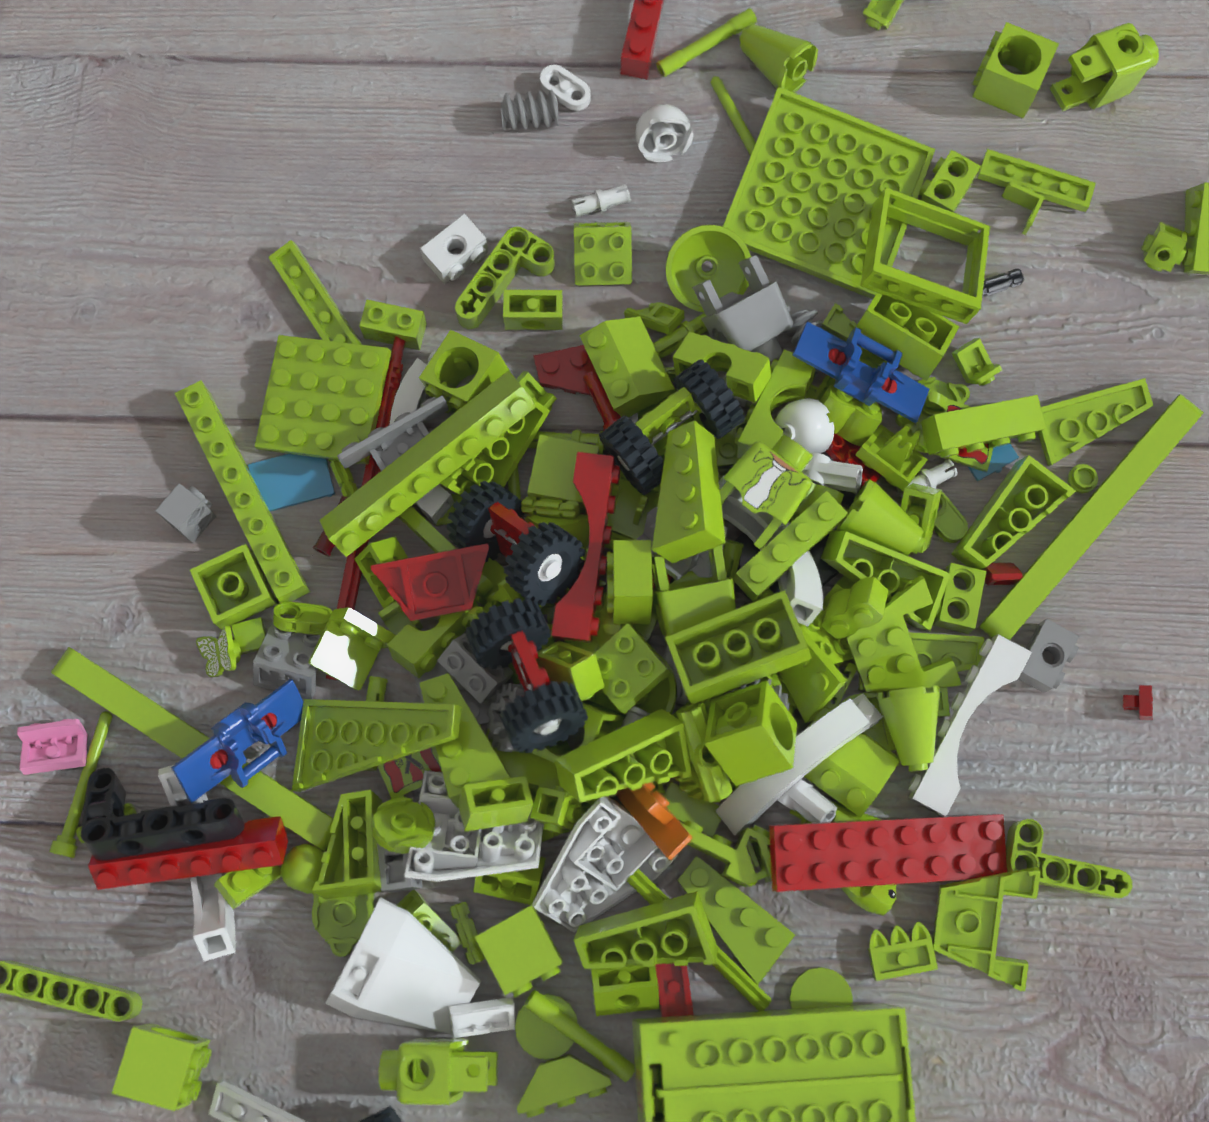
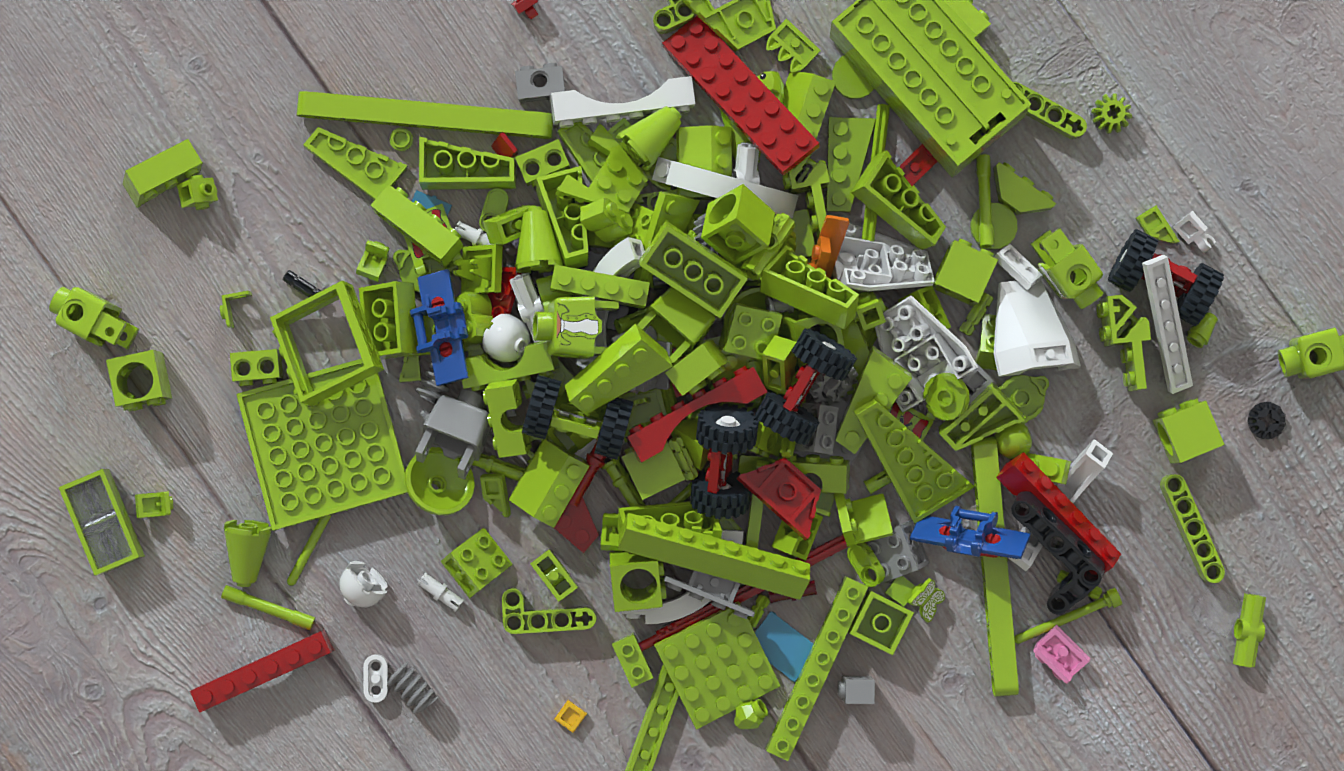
camera: 130 degrees left, 10 degrees up
(250, 397) = (750, 714): none -> lime rock
(327, 1073) = (1113, 314): none -> lime piece
(388, 234) = (570, 716): none -> yellow tile
(461, 235) = (535, 664): white brick -> none
(495, 803) = (894, 348): lime brick -> none
(624, 989) = (939, 194): lime brick -> none
(828, 922) = (808, 98): none -> lime slope
(1052, 184) = (207, 311): lime plate -> none

